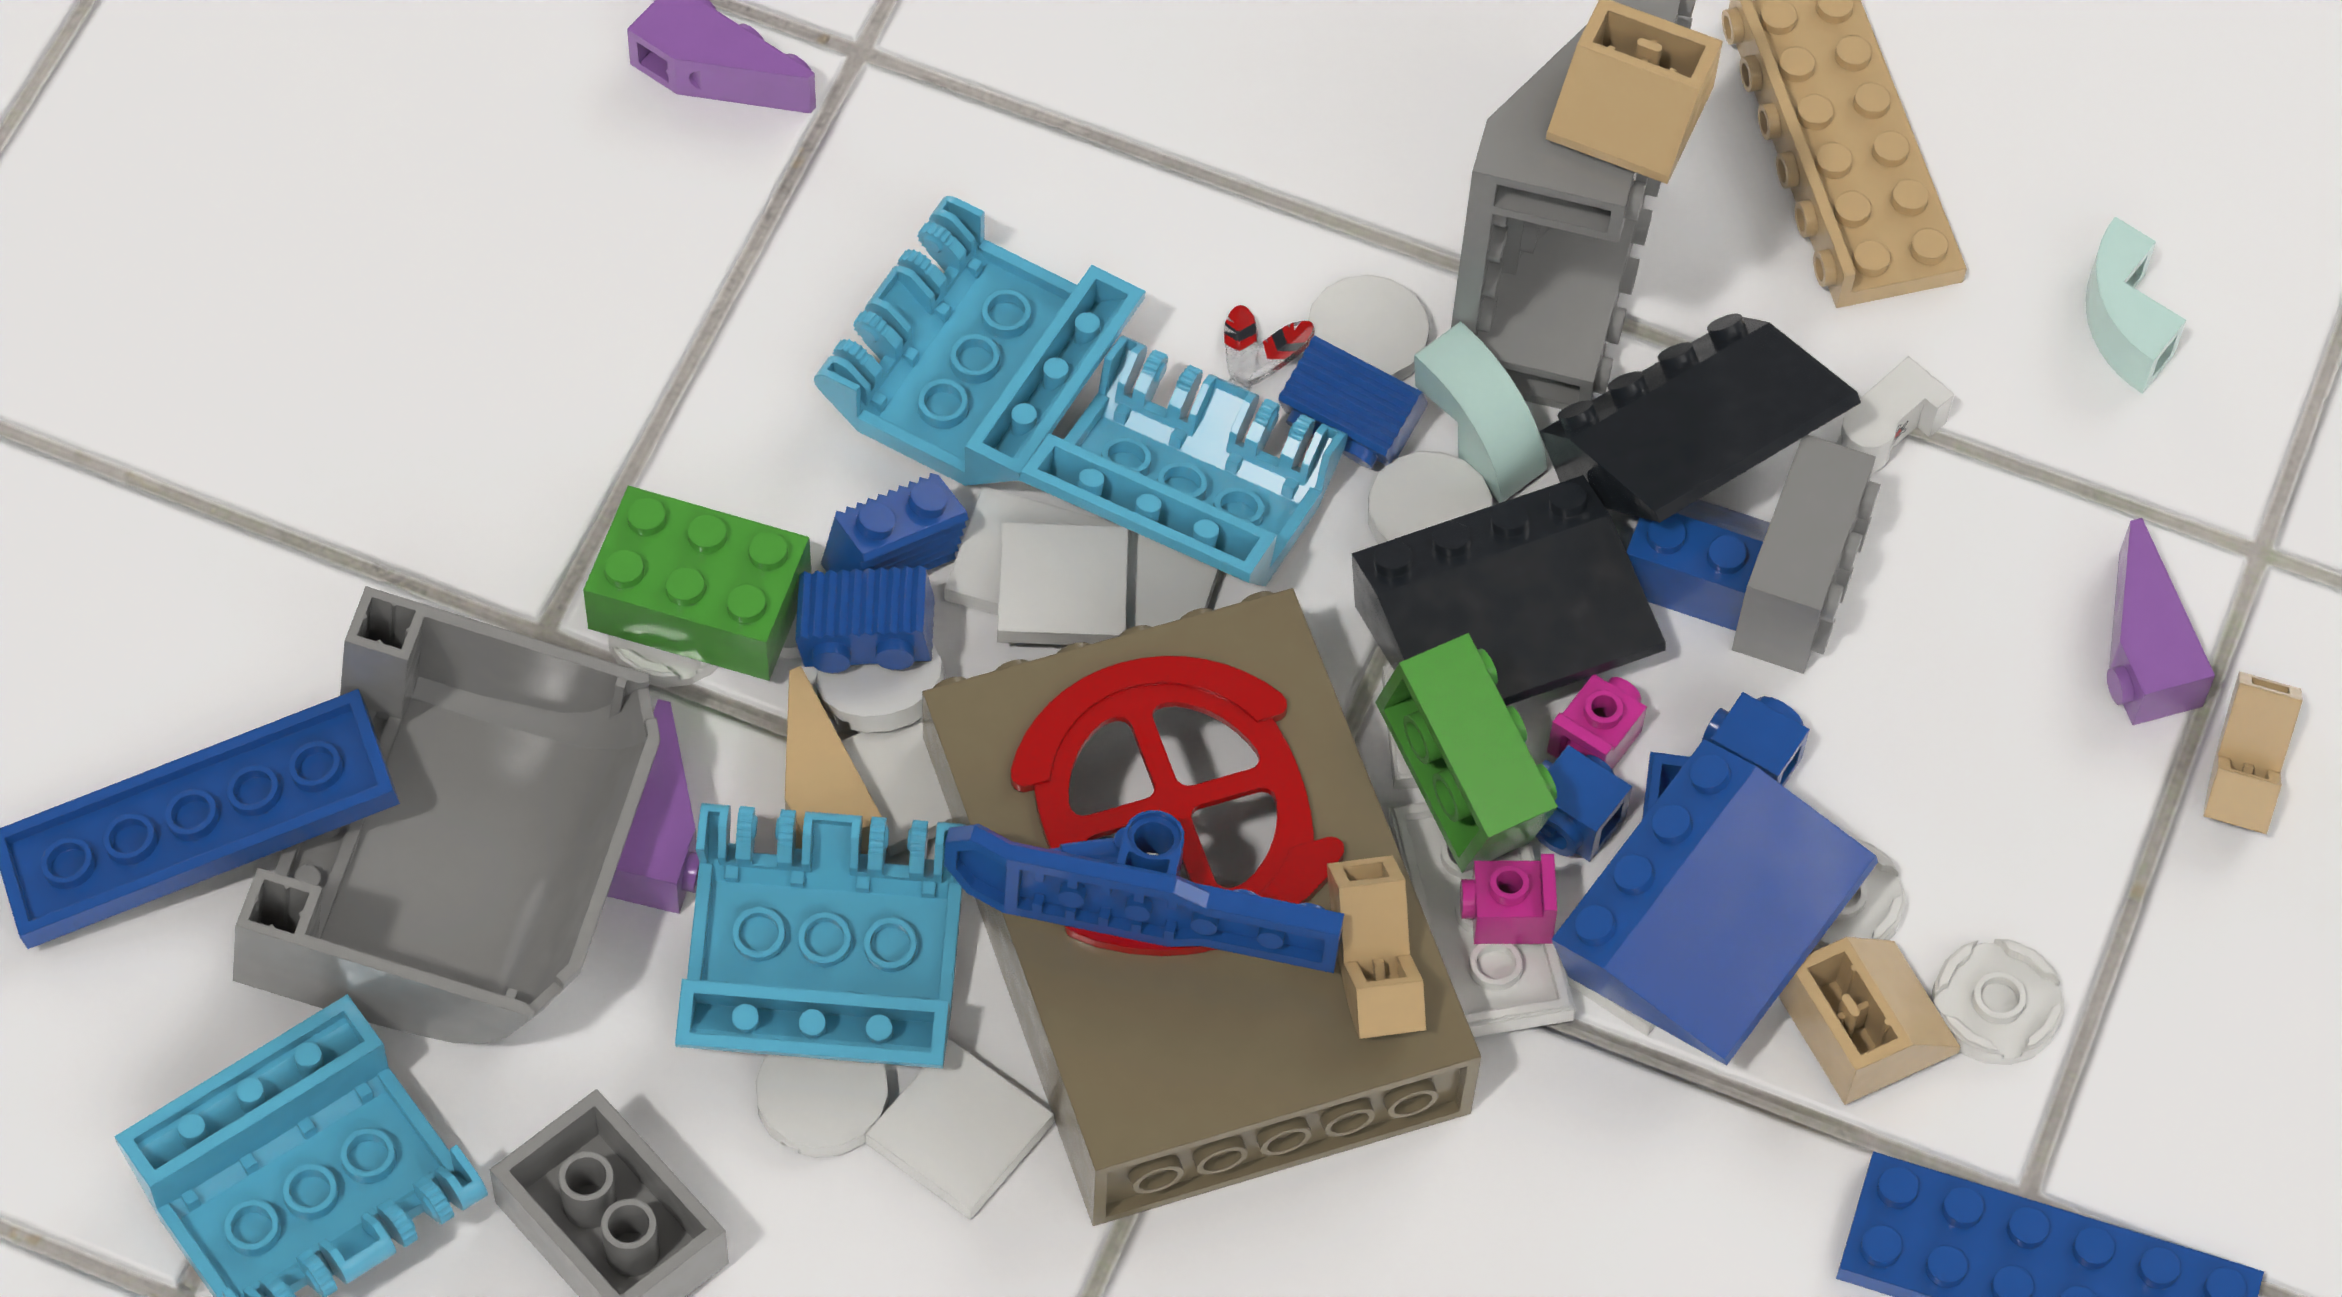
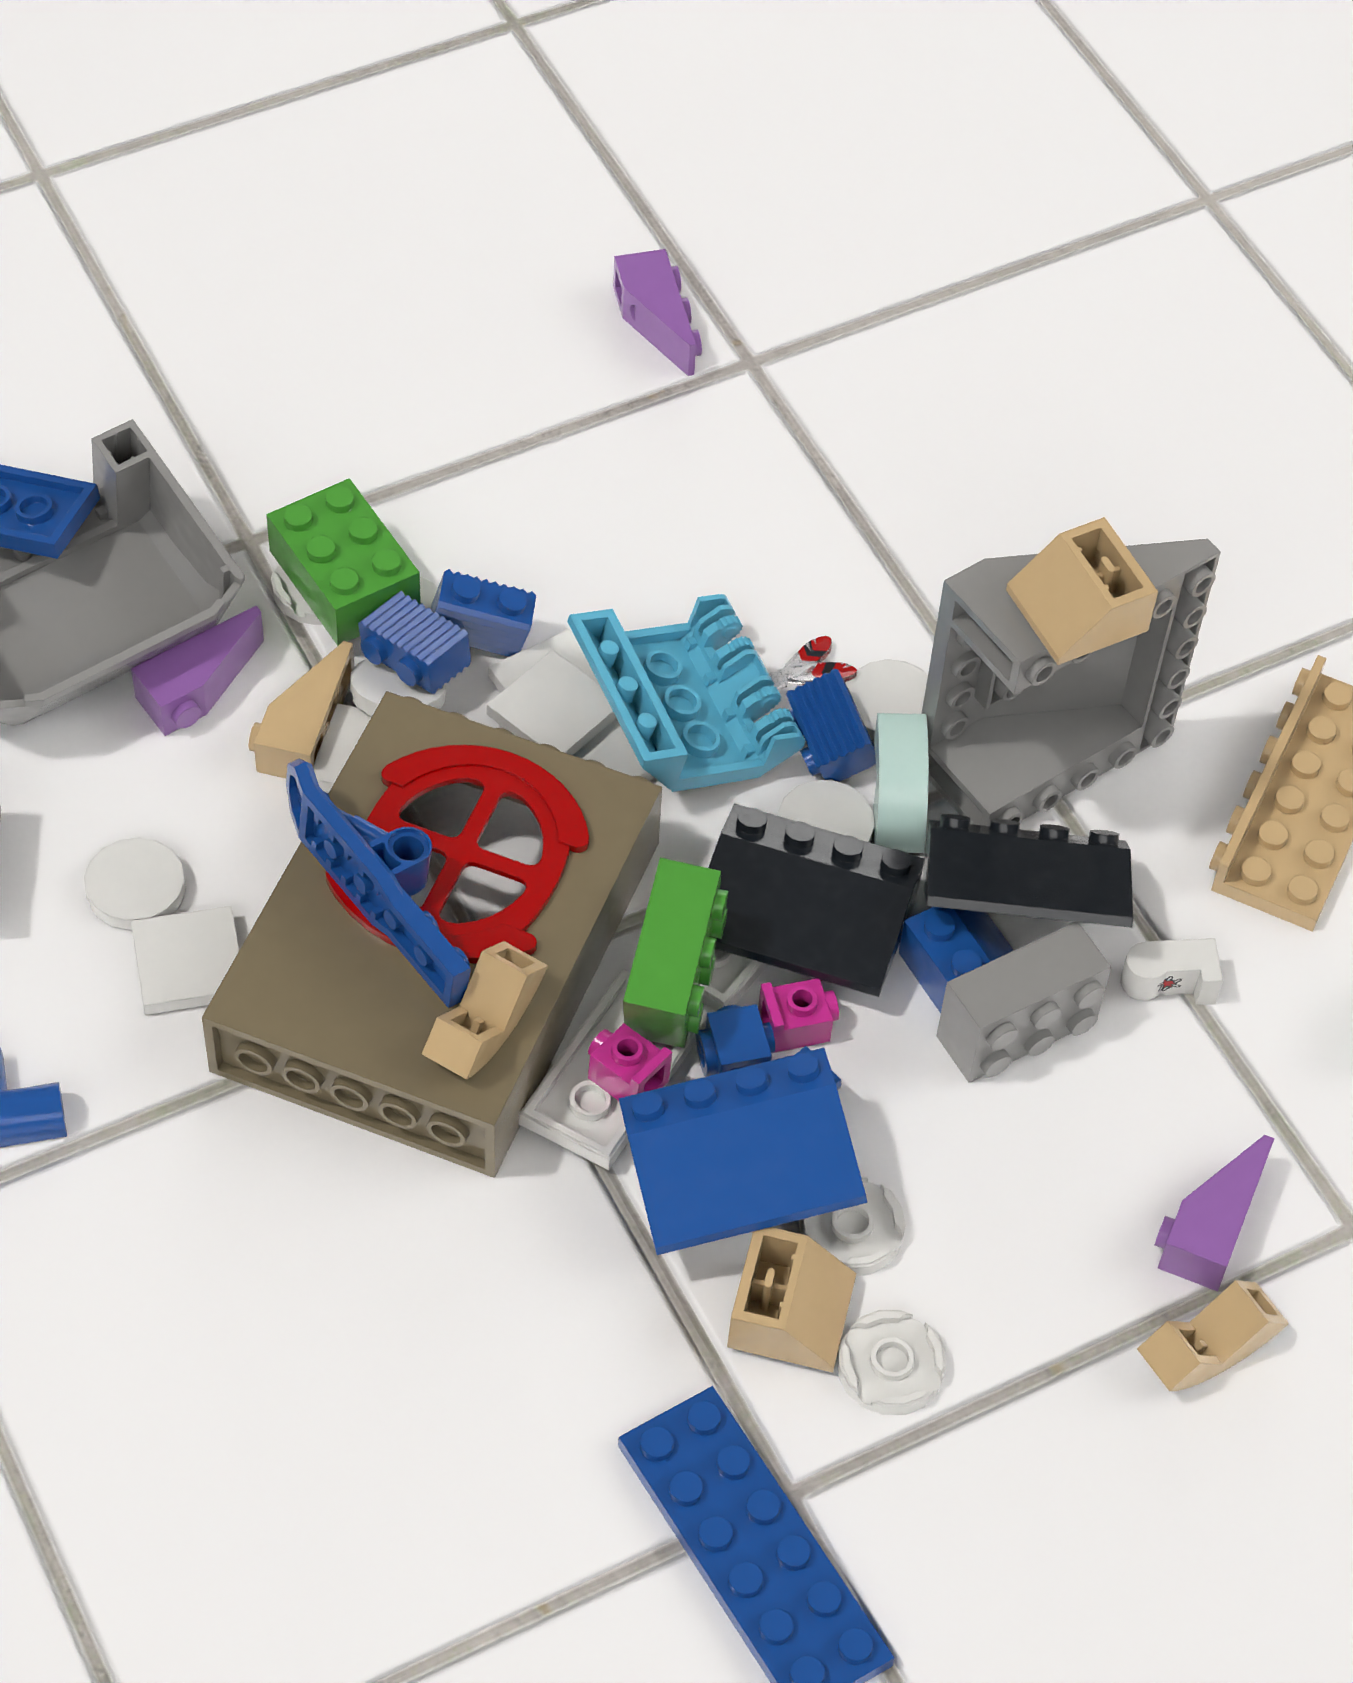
camera: 40 degrees right, 5 degrees down
(820, 942) = (203, 796): medium azure slope -> none
(975, 354) = (634, 548): medium azure slope -> none
(1762, 733) = (884, 1096): blue brick -> none

